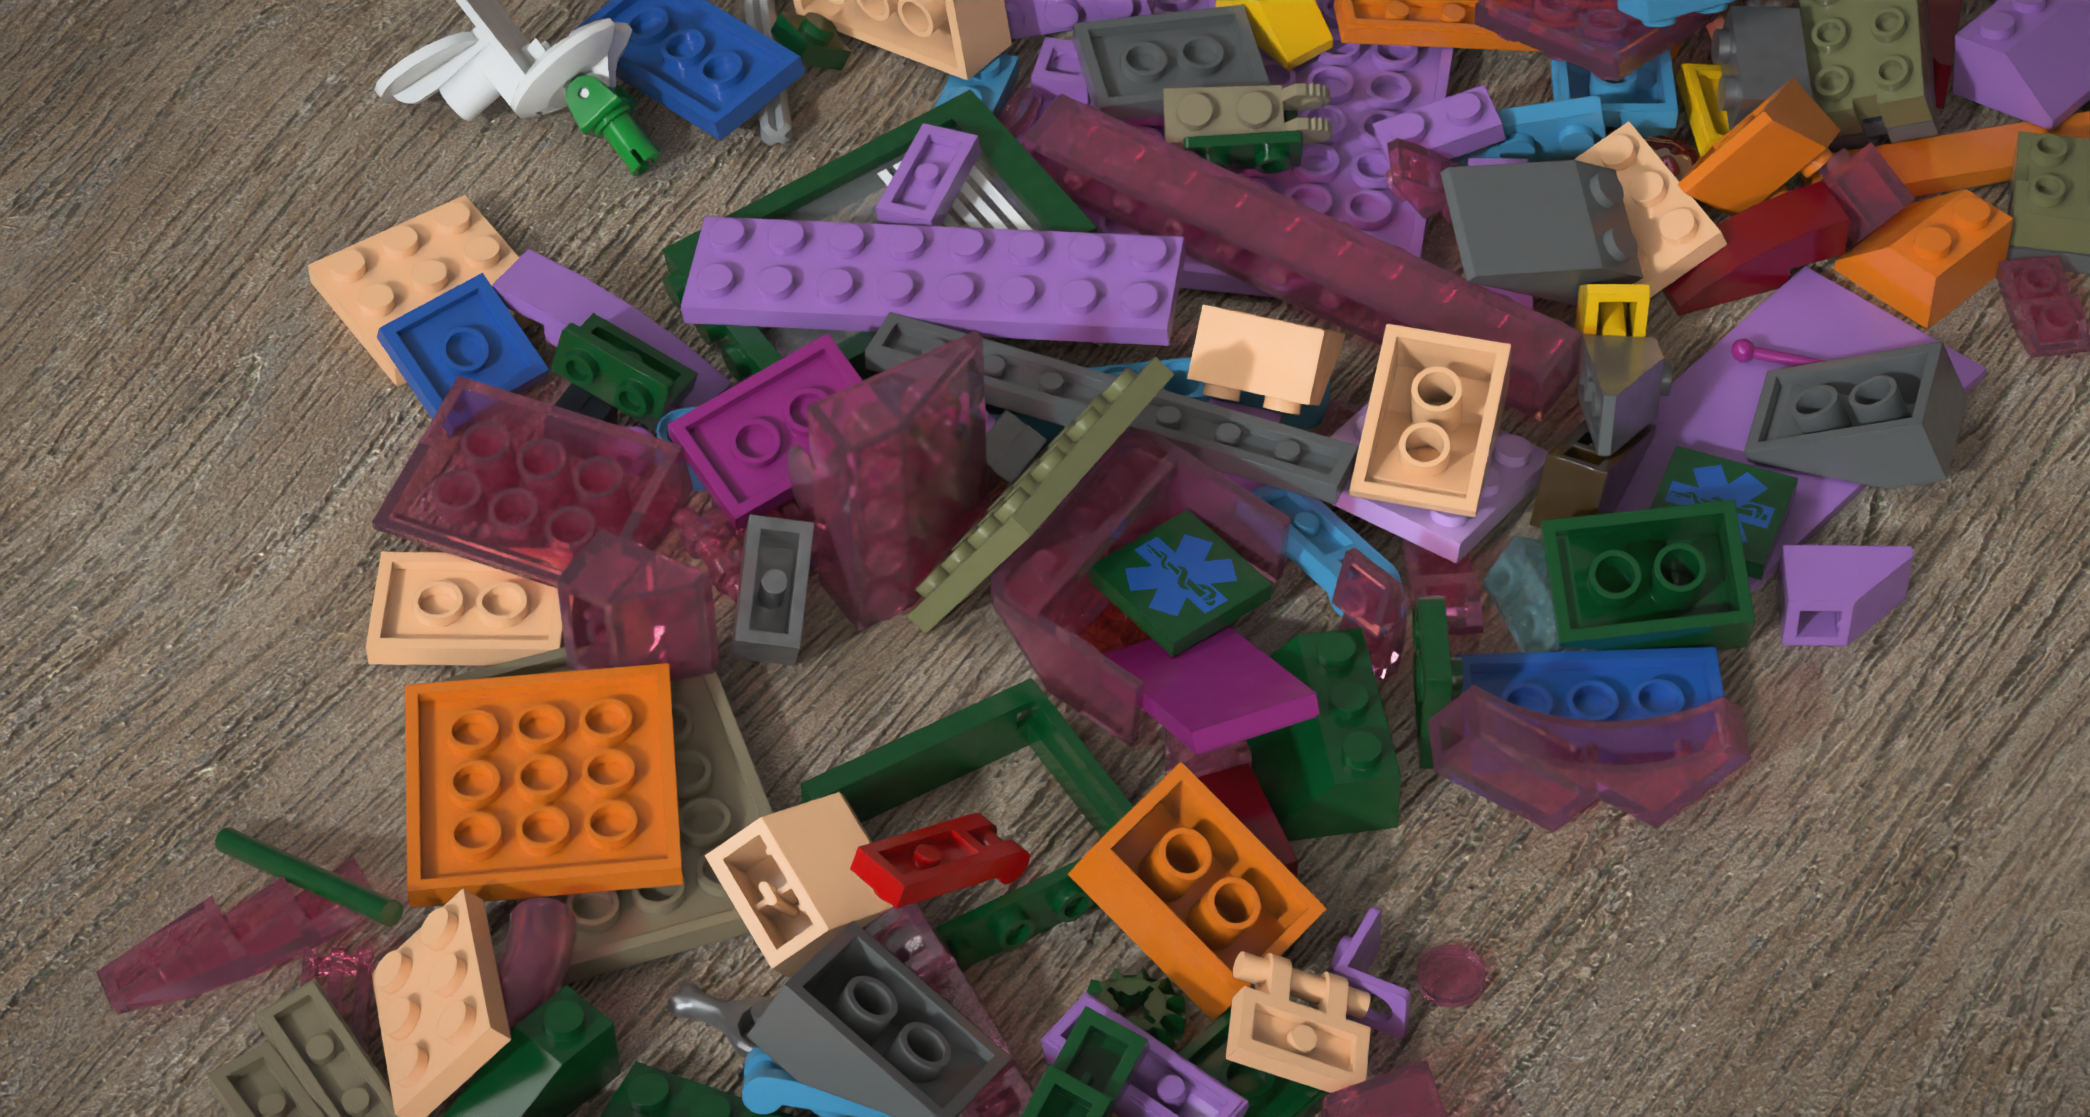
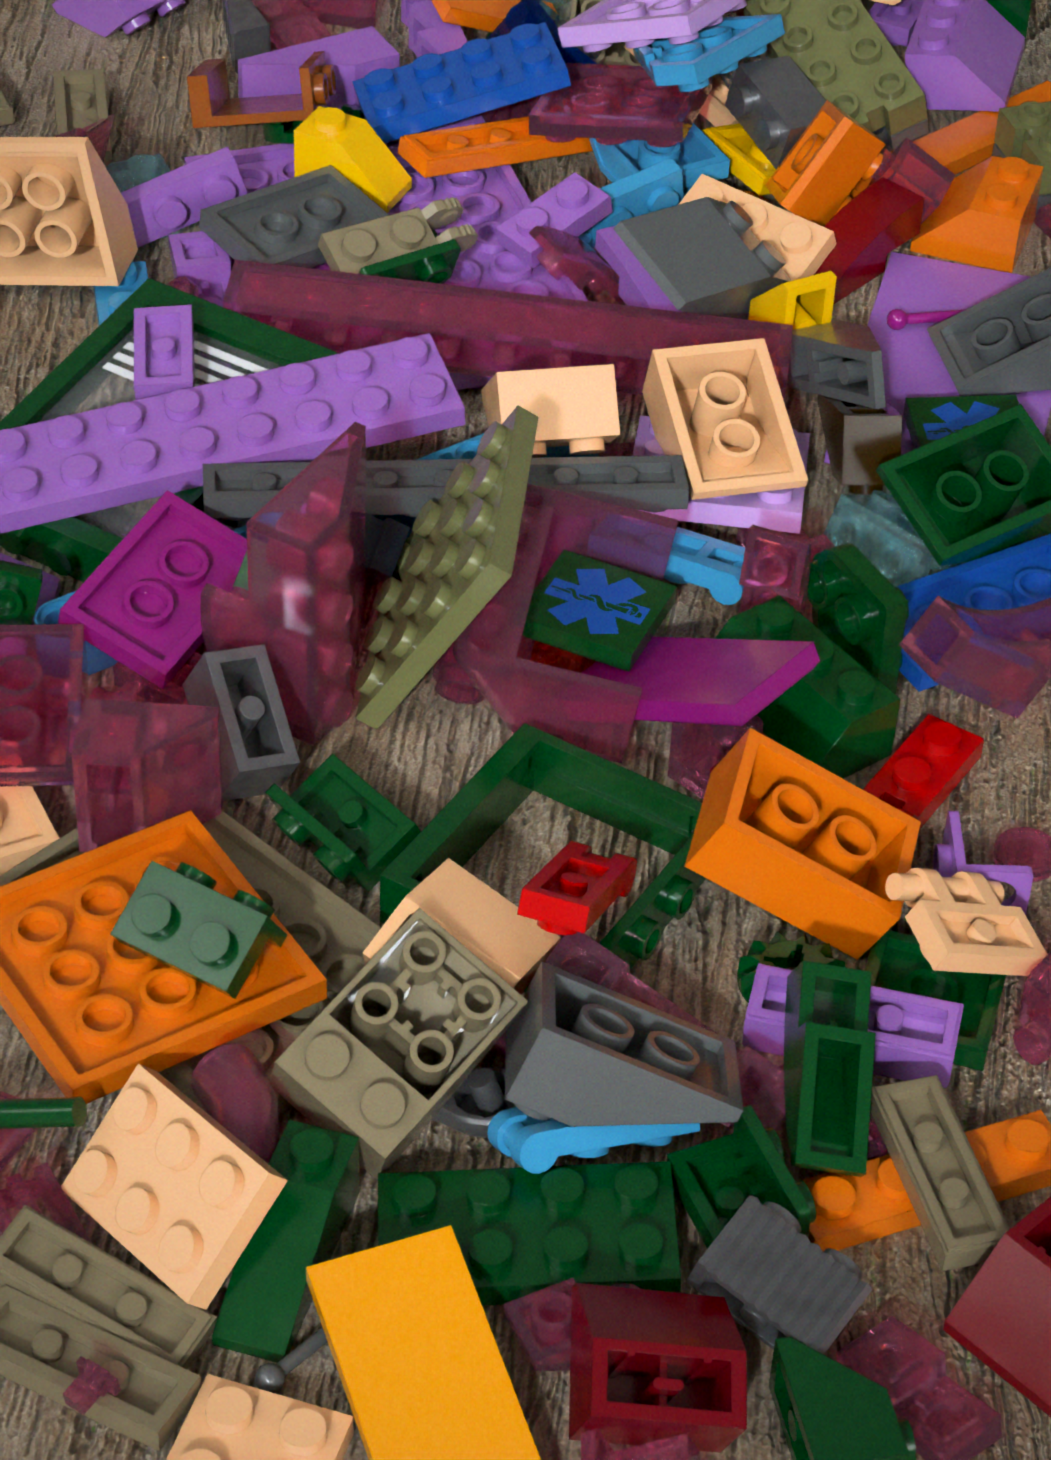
camera: 30 degrees left, 5 degrees down
(590, 778) = (195, 928): none -> dark green bracket
(694, 949) = (397, 1041): none -> dark tan slope
(815, 715) = (345, 820): none -> dark green bracket
(1392, 863) = (926, 768): none -> red plate

